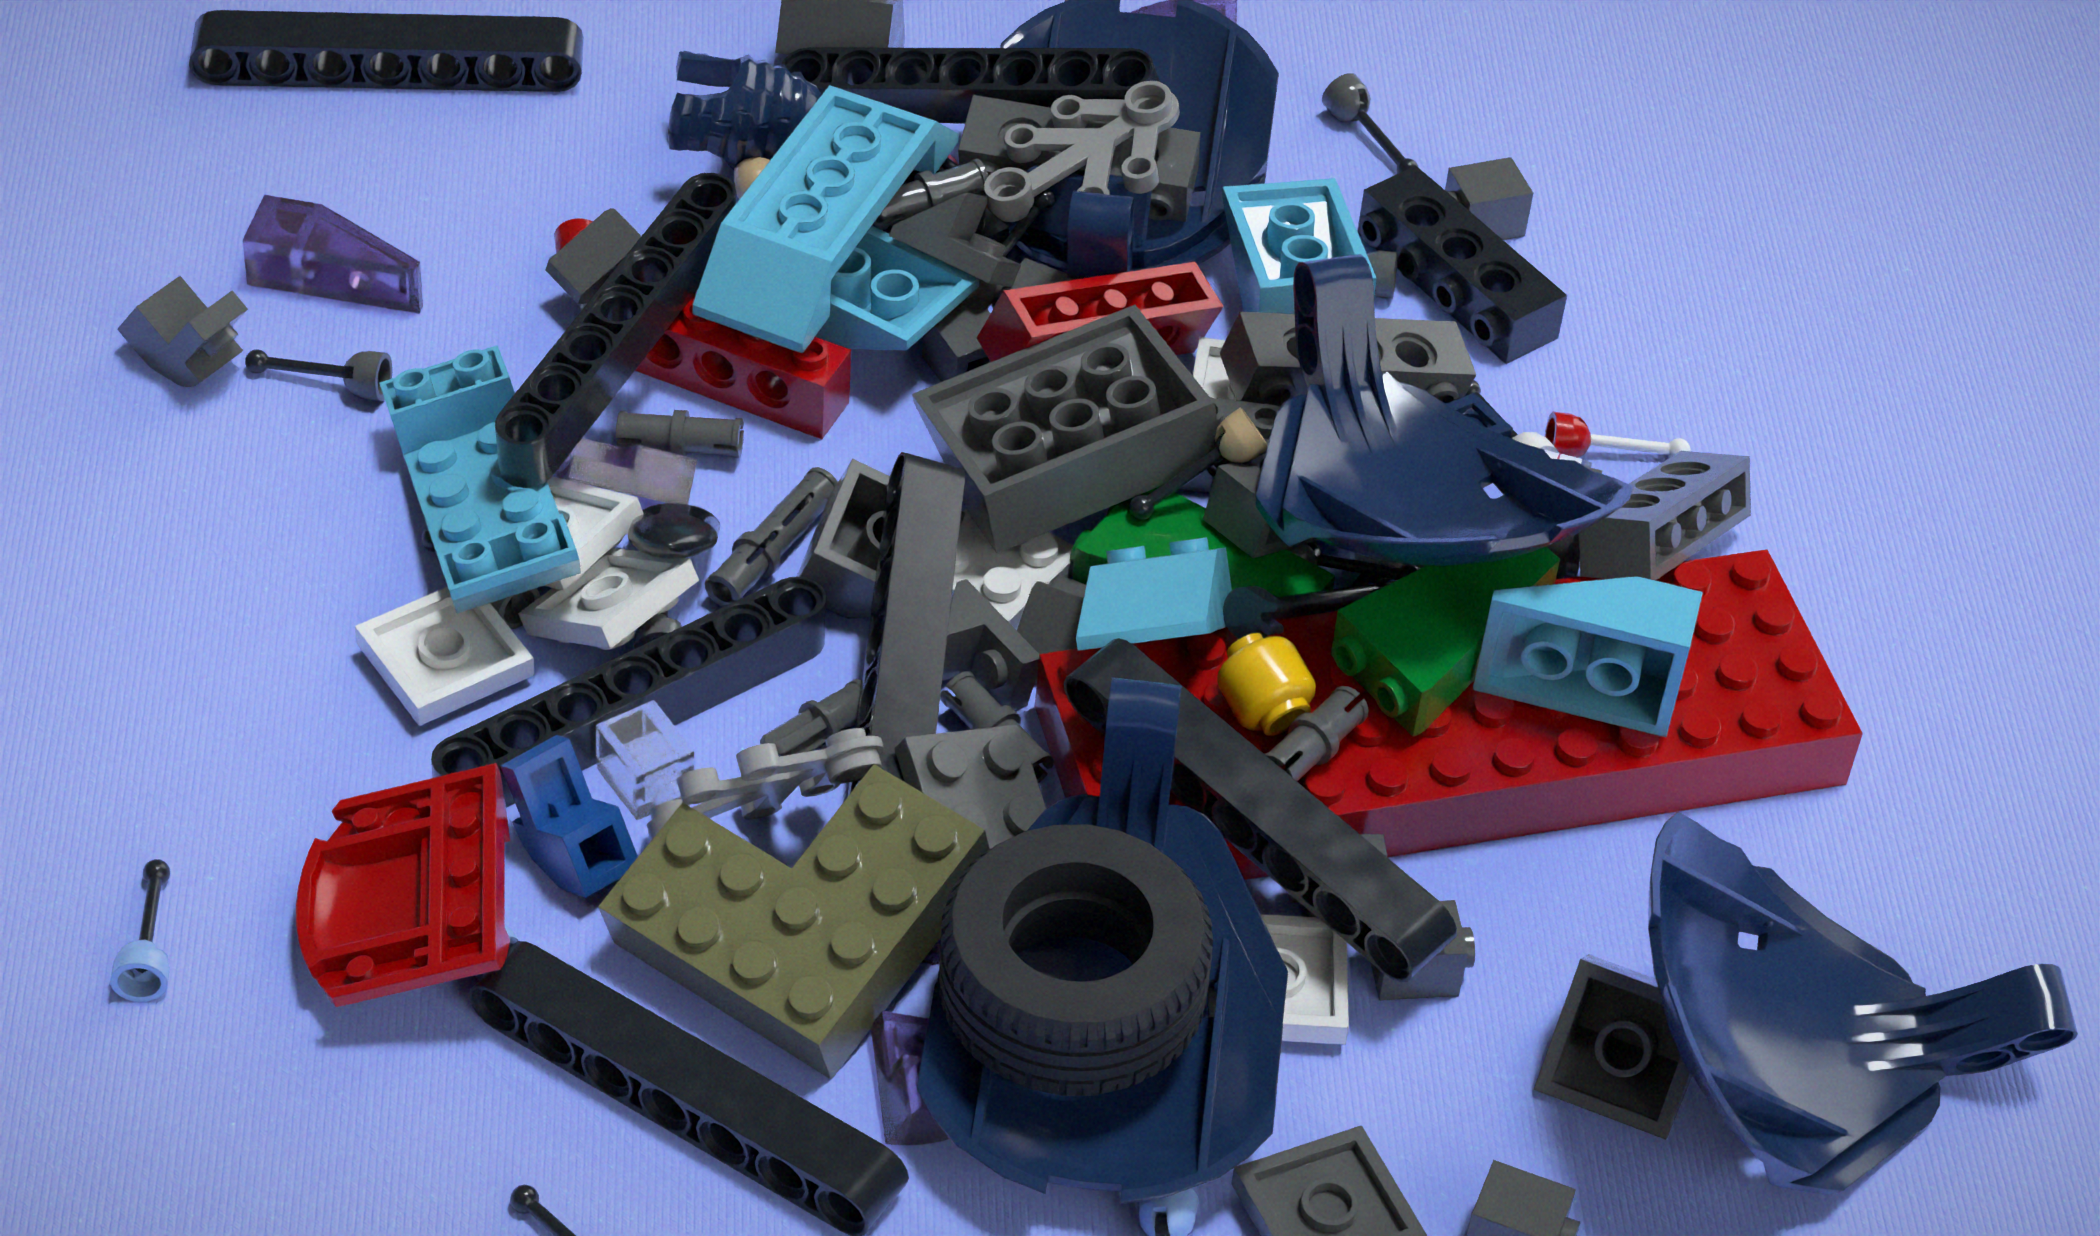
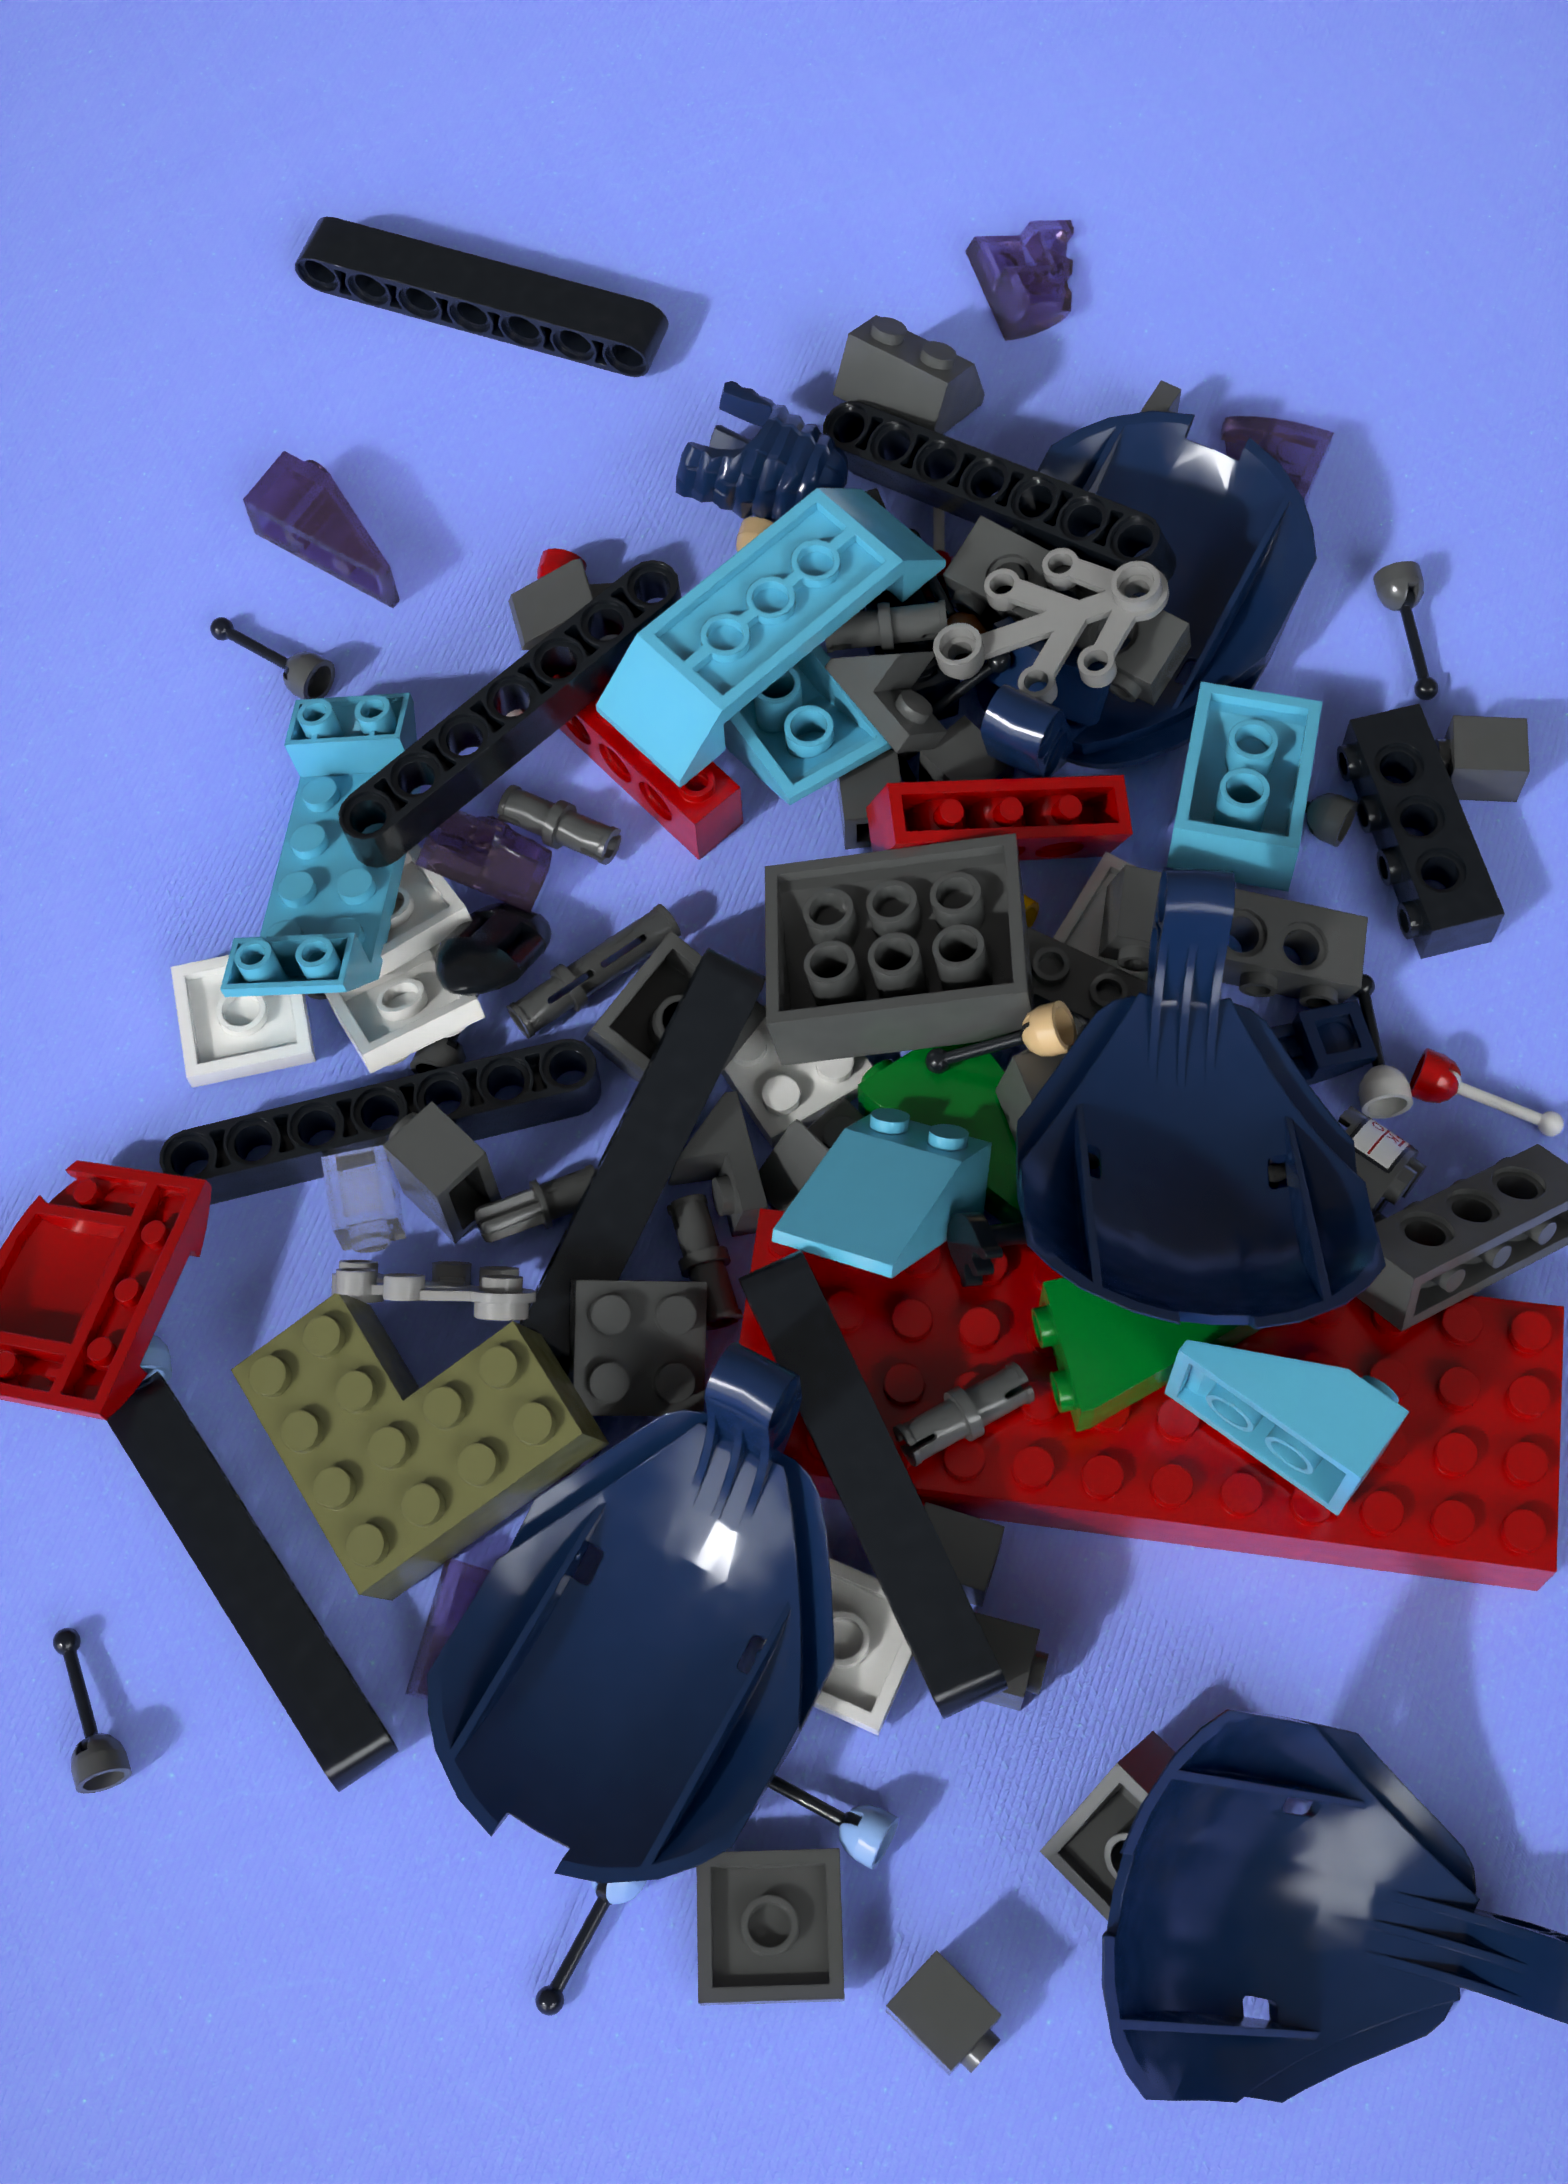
camera: 30 degrees right, 20 degrees up
(182, 335) = (159, 588): dark grey brick -> none
(563, 829) = (258, 1252): blue brick -> none
(721, 699) = (441, 1169): none -> dark grey piece
(1064, 1032) = (549, 1532): black tyre -> none
(1266, 683) = (943, 1336): yellow head -> none
(1372, 1108) = (863, 1831): none -> light blue hinge

